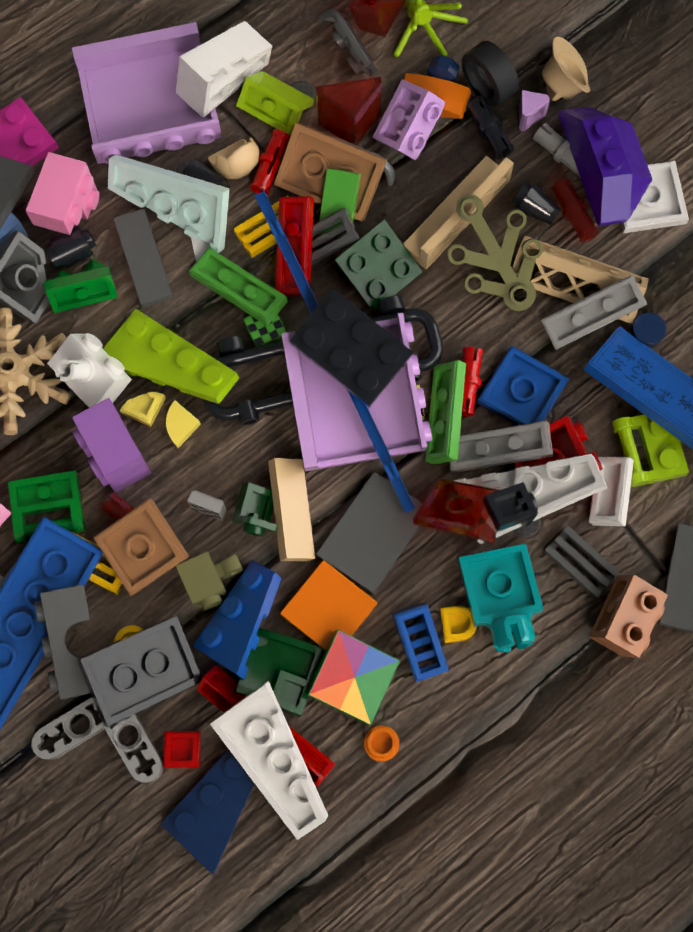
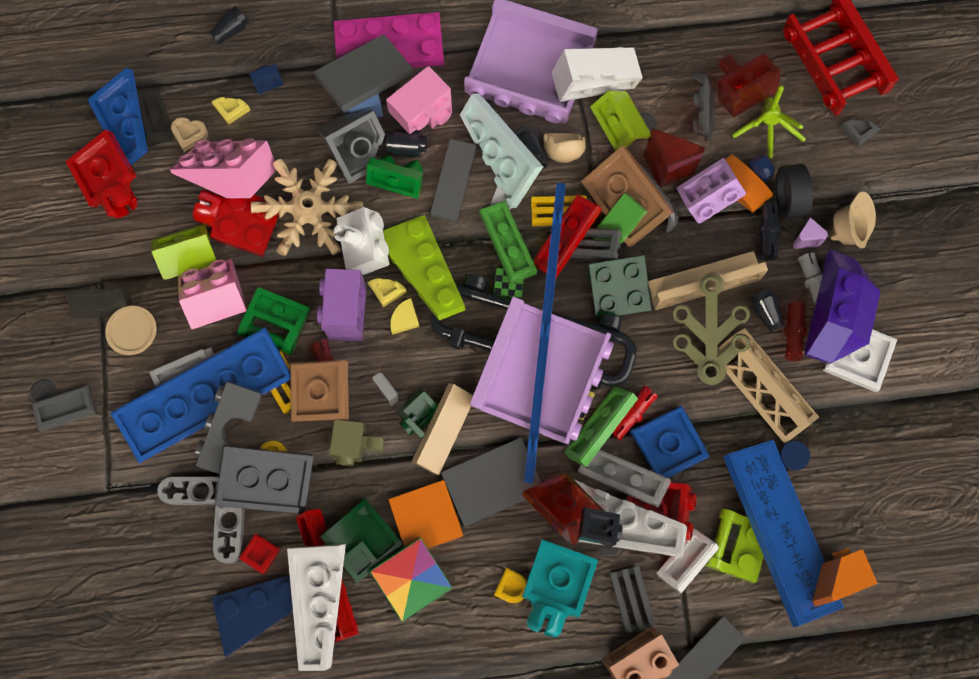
camera: 30 degrees right, 0 degrees up
(236, 622) = (351, 487): blue wing -> none
(270, 162) = (588, 163): red pin -> none
(351, 347) = (556, 337): black plate -> none
(381, 743) = (401, 639): orange plate -> none
(427, 623) = (468, 608): blue slope -> none
(594, 312) = (759, 418): light grey tile -> none

